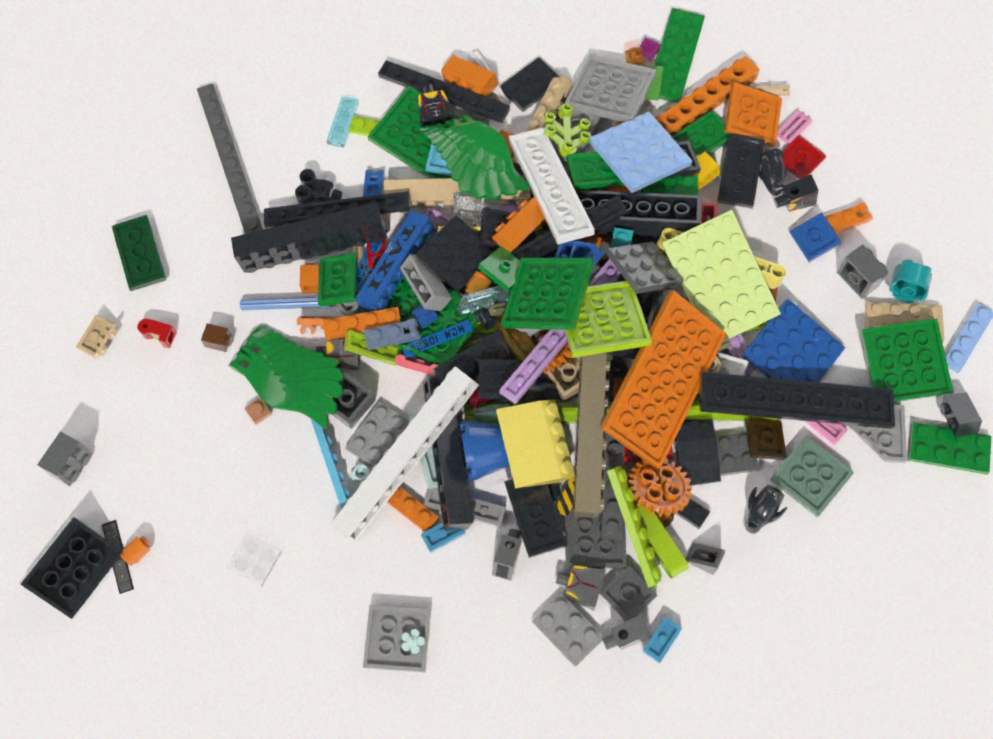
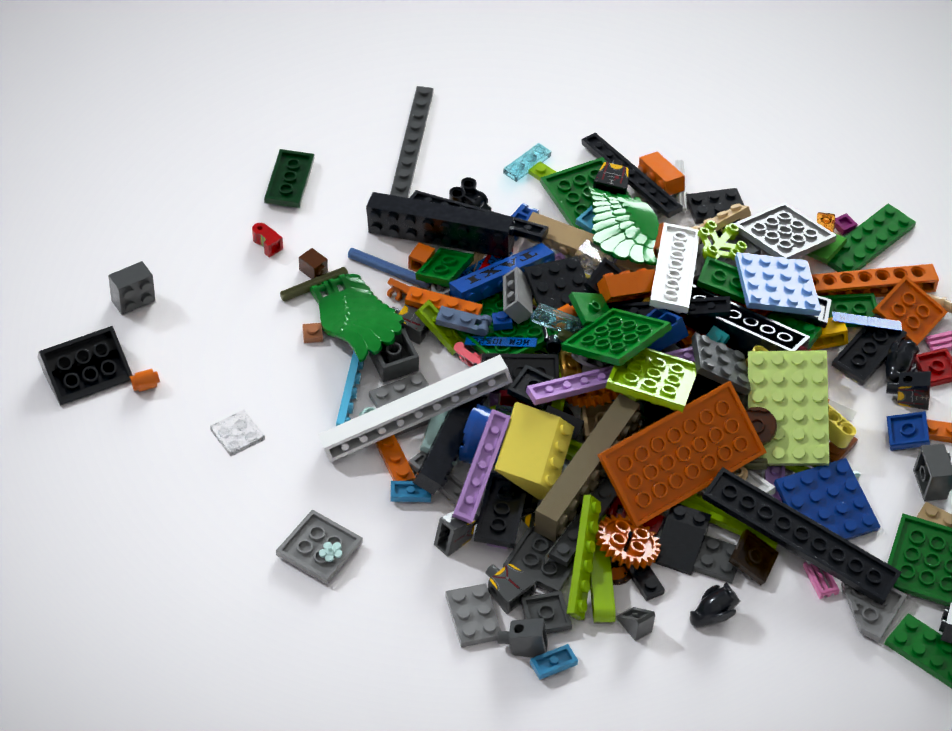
camera: 25 degrees right, 20 degrees down
(96, 336) = (214, 220): tan bracket -> none
(120, 568) = (123, 390): sticker -> none
(228, 356) = (304, 287): none -> olive axle
(502, 490) = (481, 466): none -> lavender plate
(710, 306) = (763, 422): none -> reddish brown tile
(727, 146) = (867, 321): none -> clear blue sticker
(811, 476) = (780, 608): sand green plate -> none

